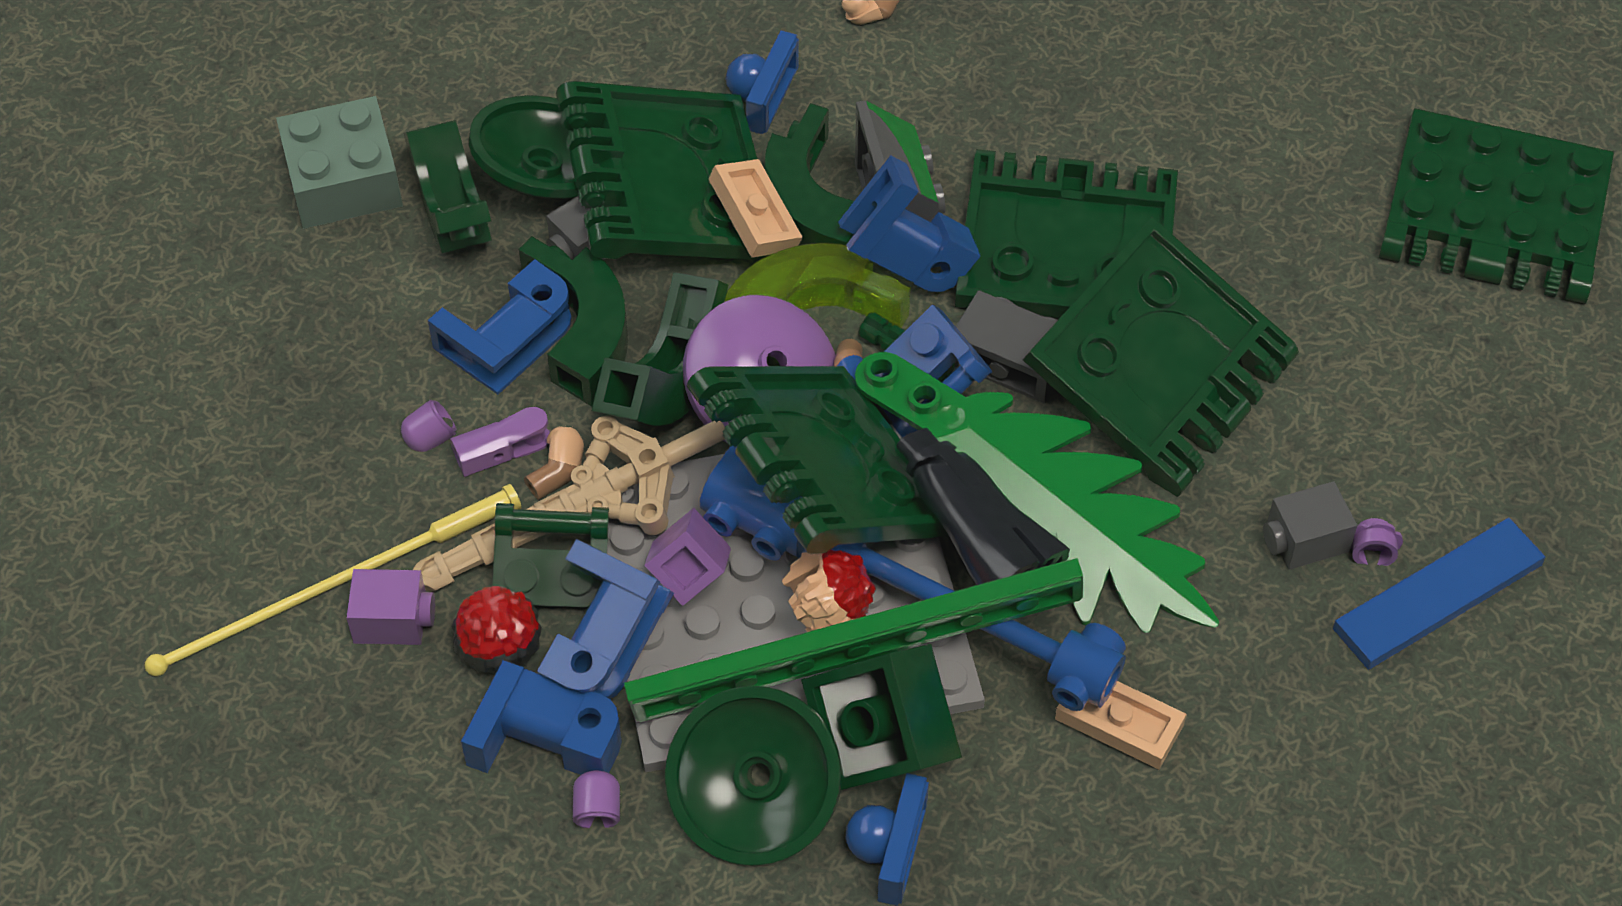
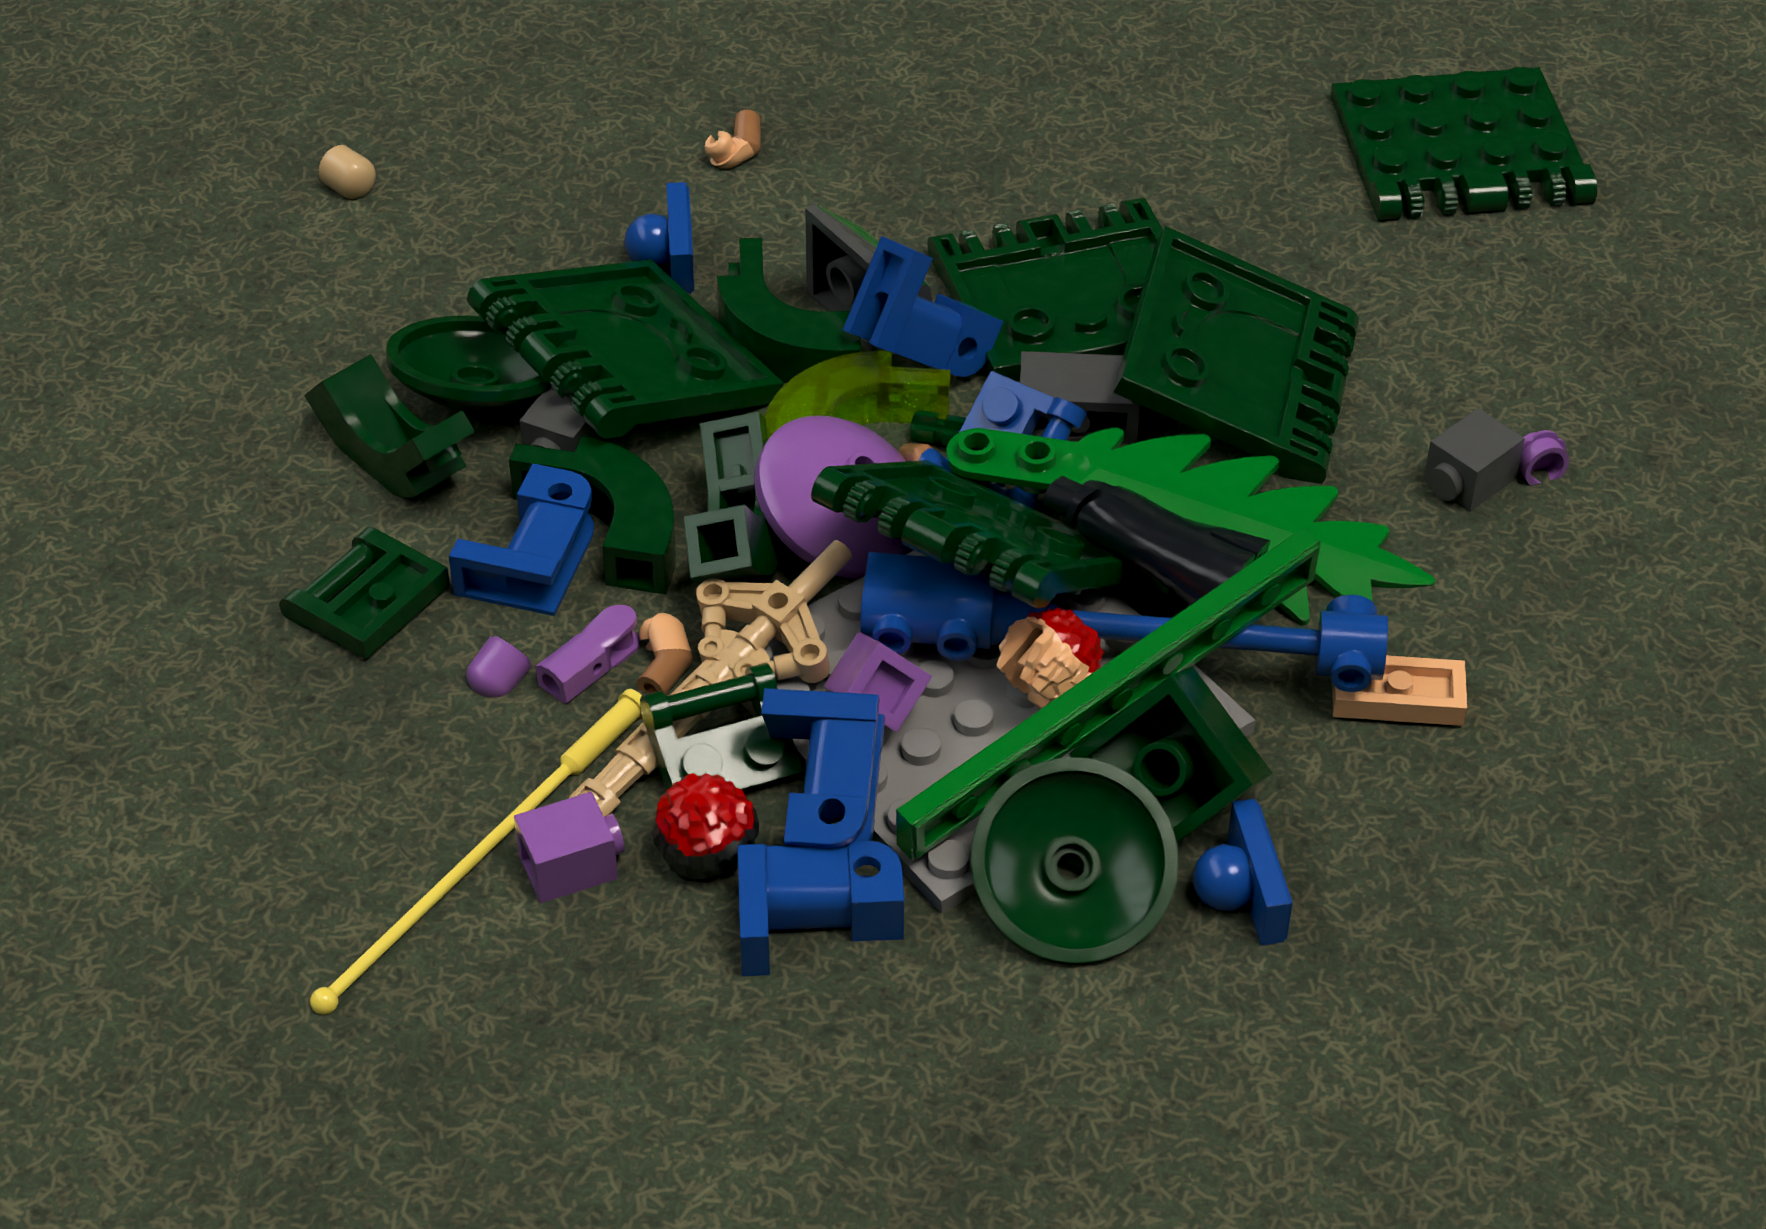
camera: 25 degrees left, 10 degrees down
(339, 162) = (246, 444): sand green brick -> none
(368, 334) = (373, 604): none -> dark green plate
(594, 796) = (911, 949): medium lavender piece -> none
(754, 207) = (742, 346): light nougat plate -> none
(1438, 593) = (1624, 484): blue tile -> none

